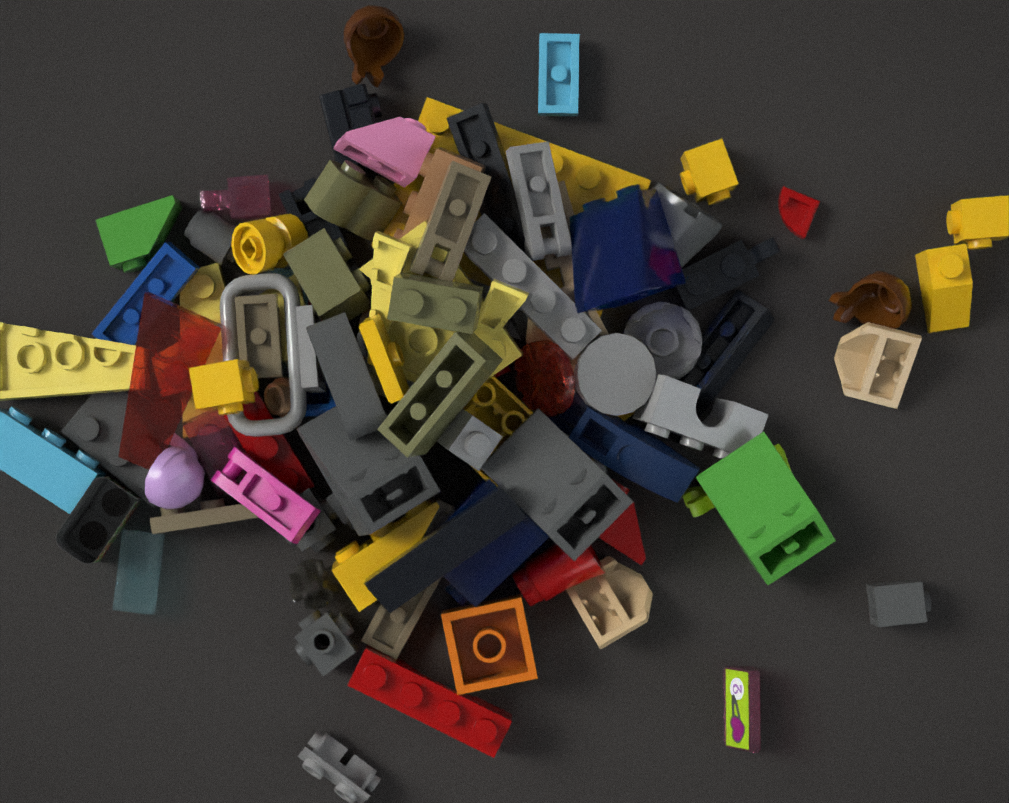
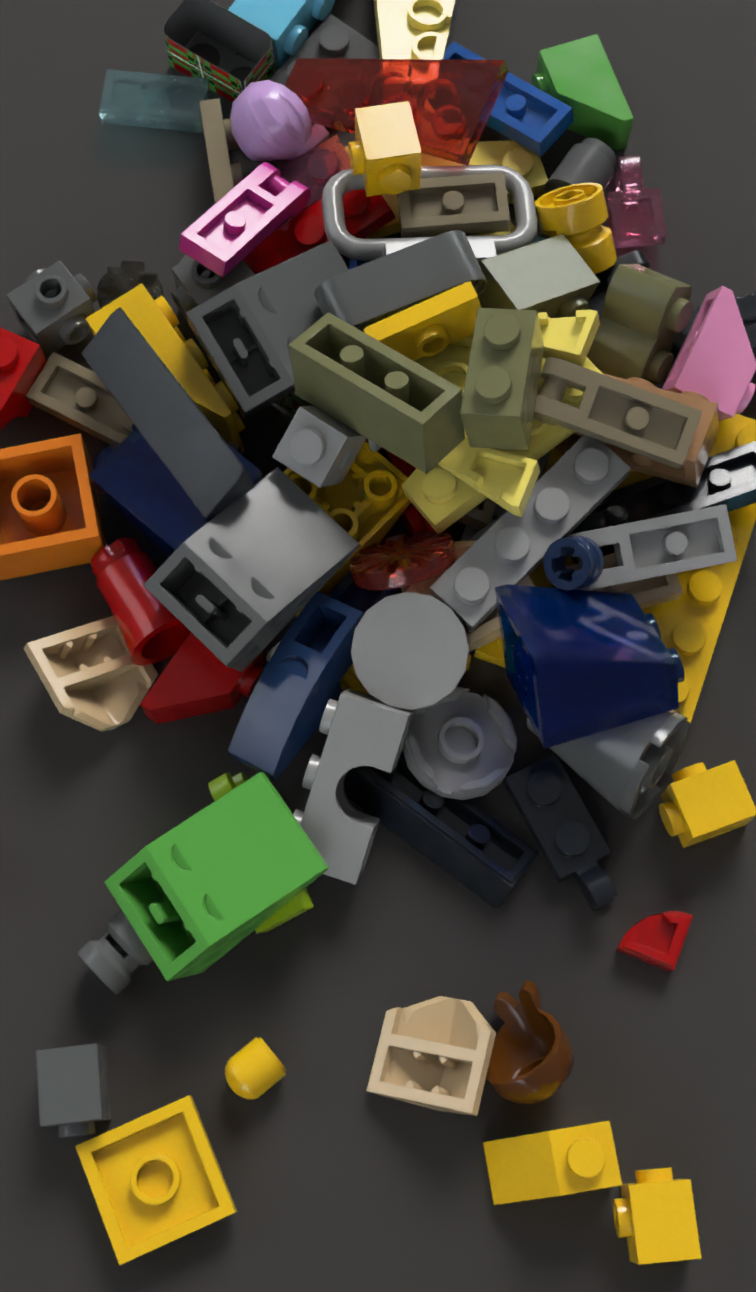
camera: 95 degrees right, 15 degrees down
(549, 248) = (577, 546): none -> dark blue bush
(811, 579) = (108, 962): none -> dark grey wheel
(884, 483) = (253, 1070): none -> yellow piece
(954, 546) = (155, 1179): none -> yellow plate

